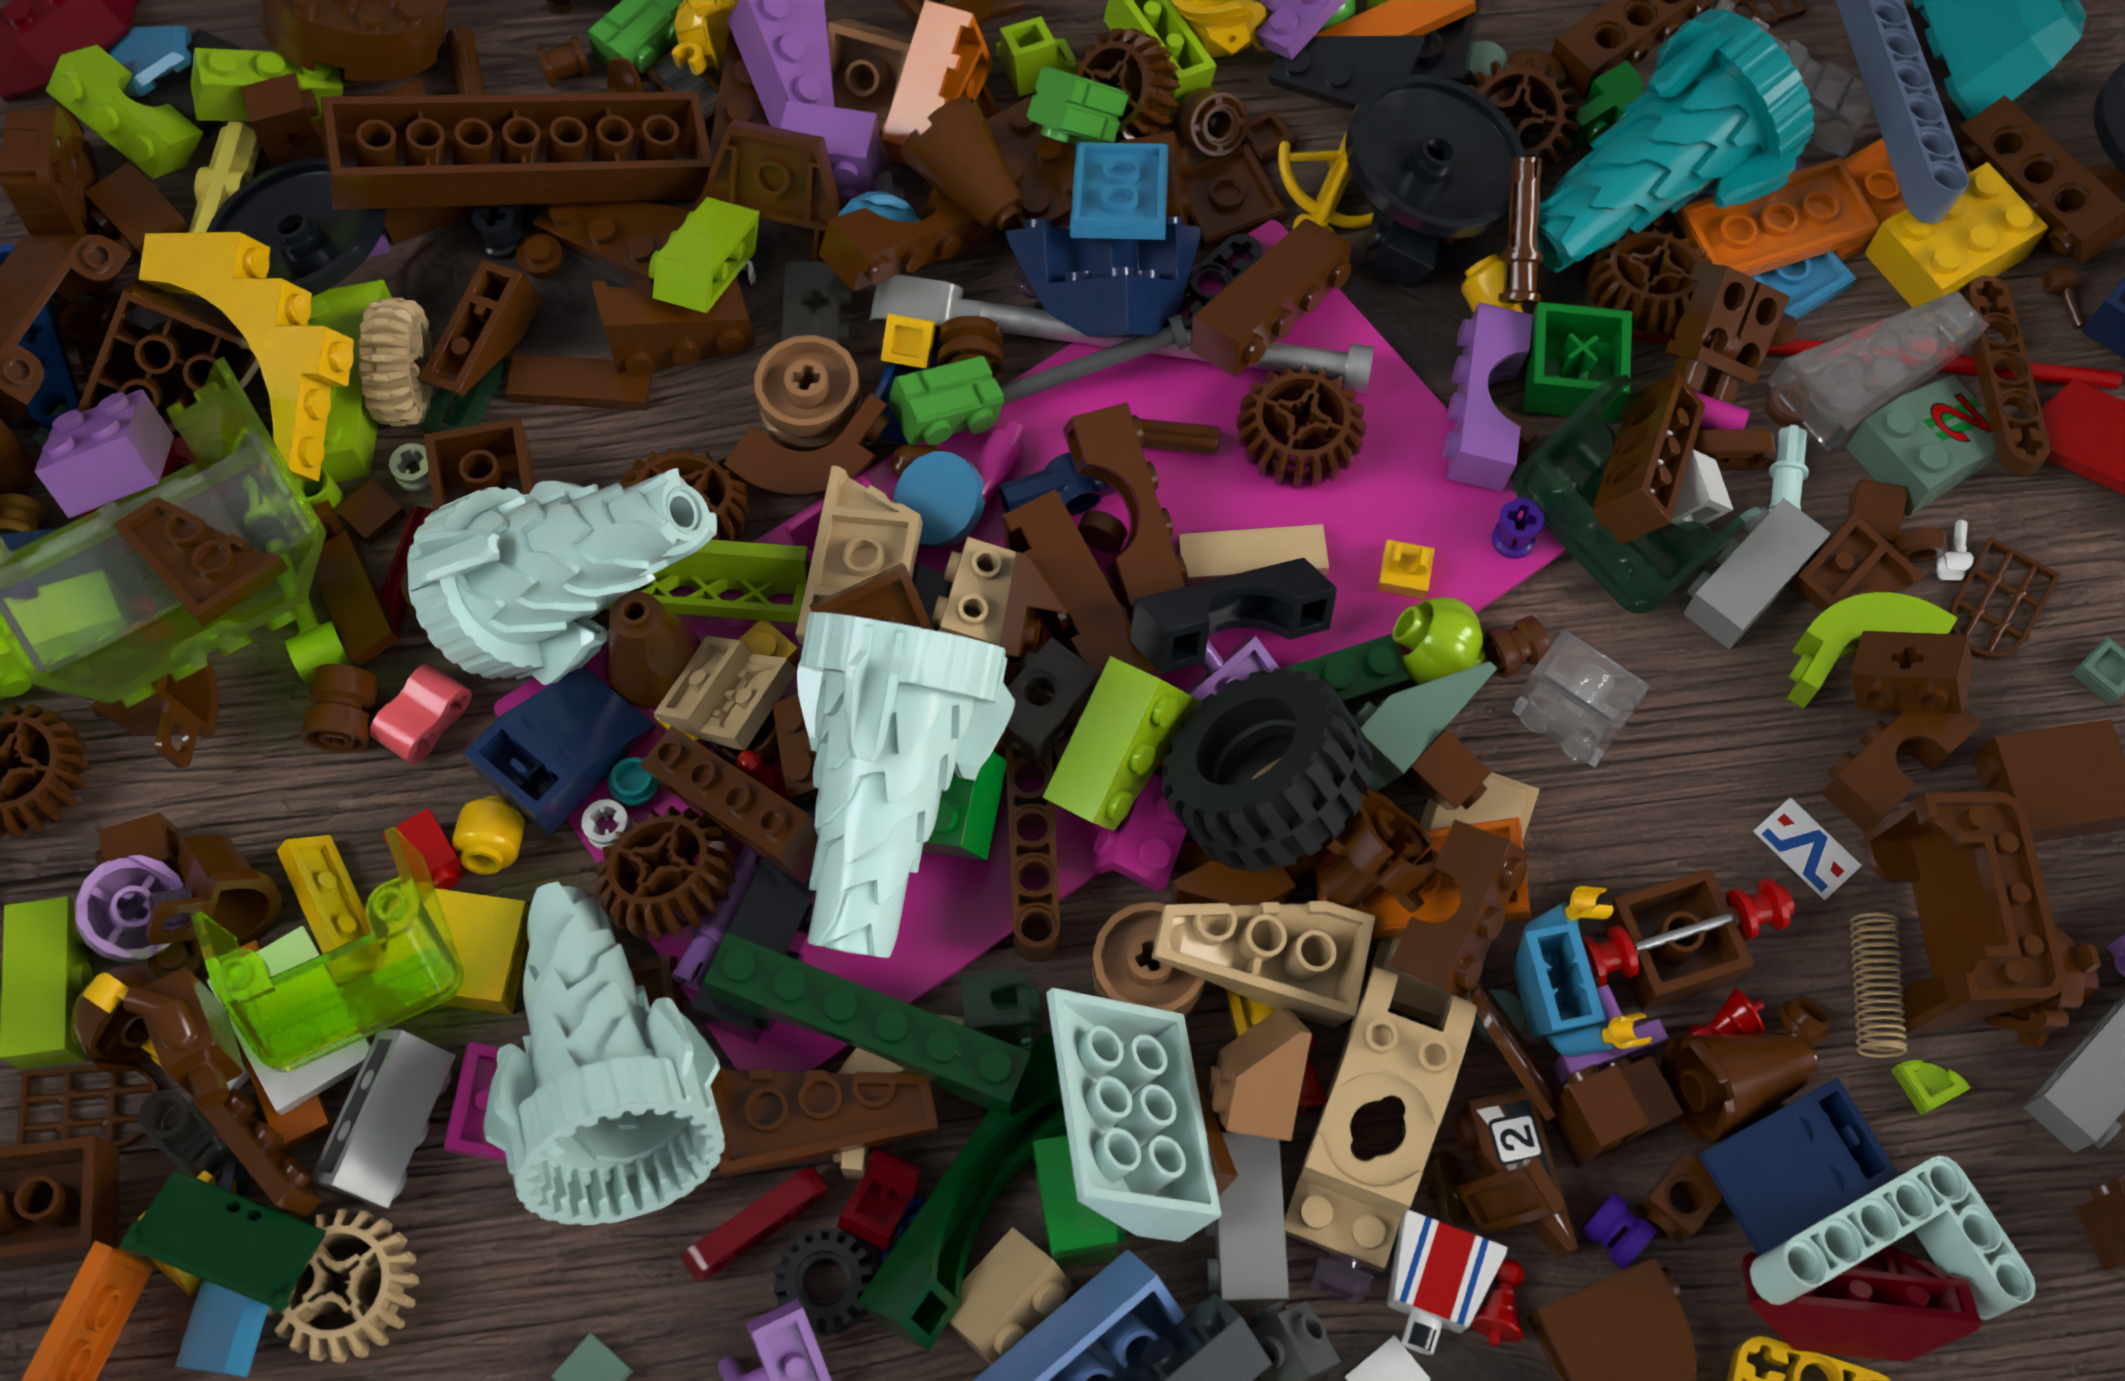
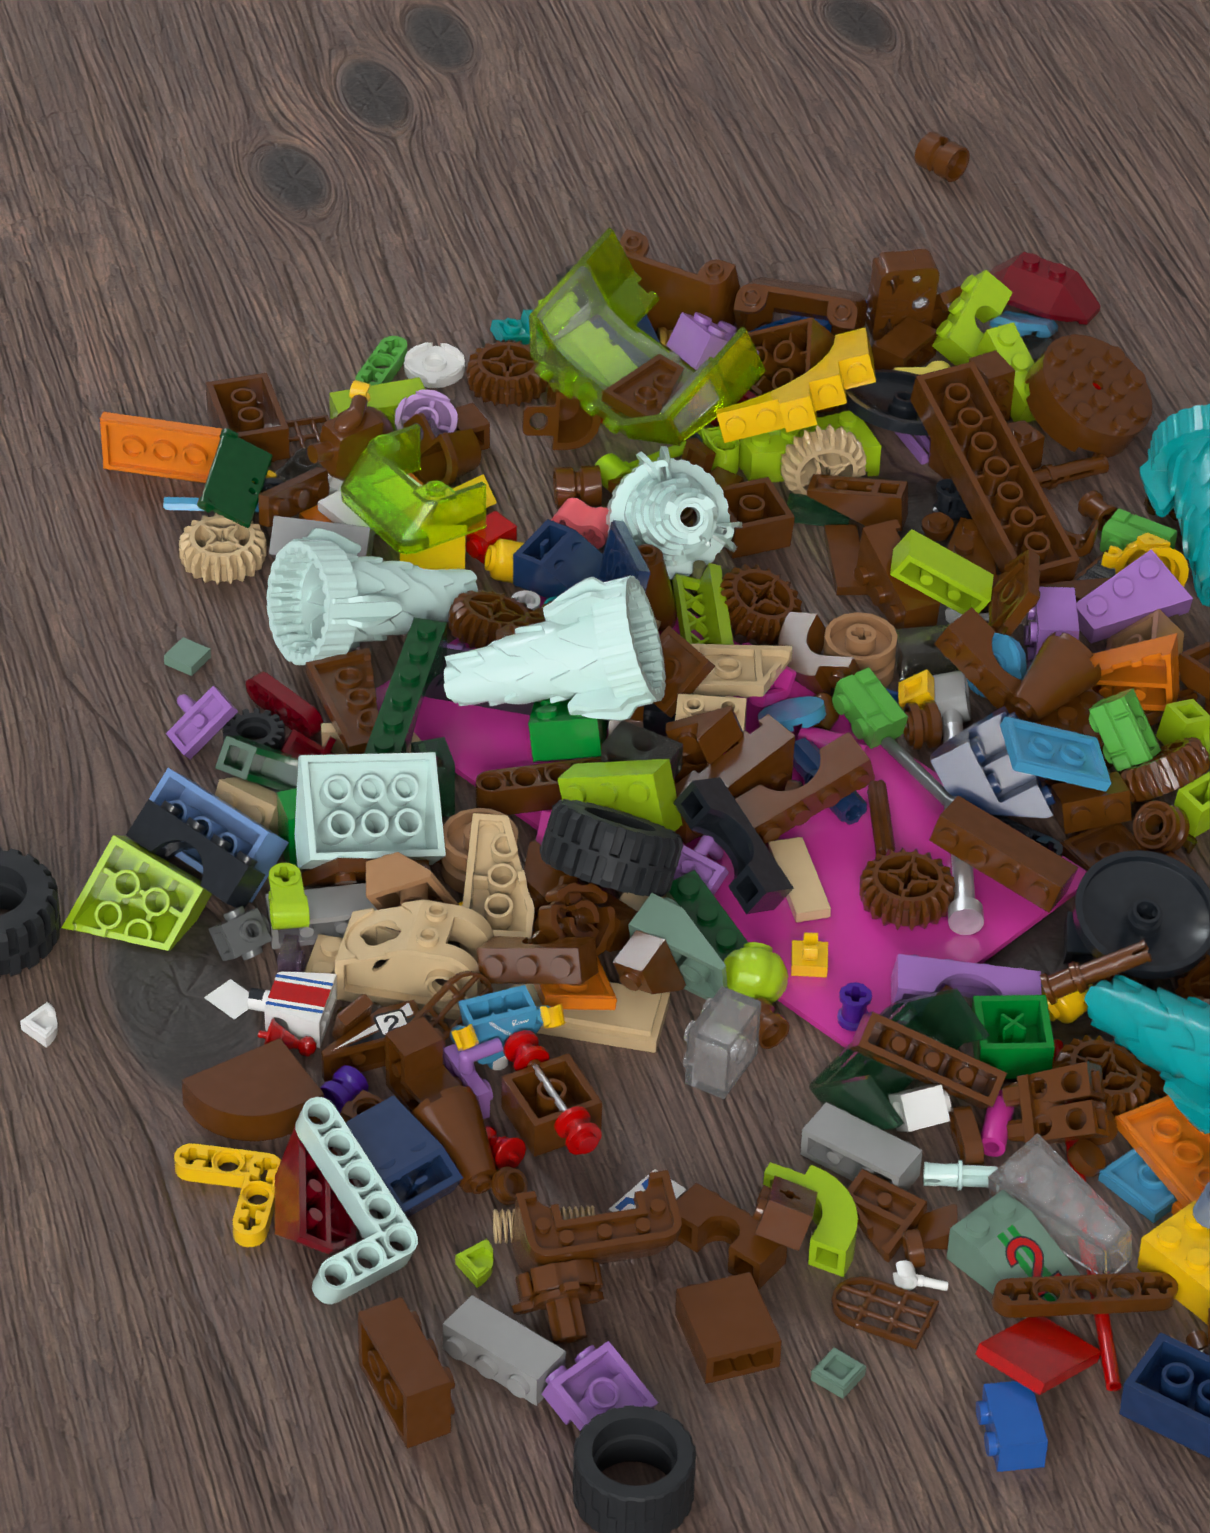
camera: 80 degrees right, 25 degrees down
(665, 656) = (622, 556): none -> dark blue tile
(1282, 1265) = (287, 898): none -> lime piece

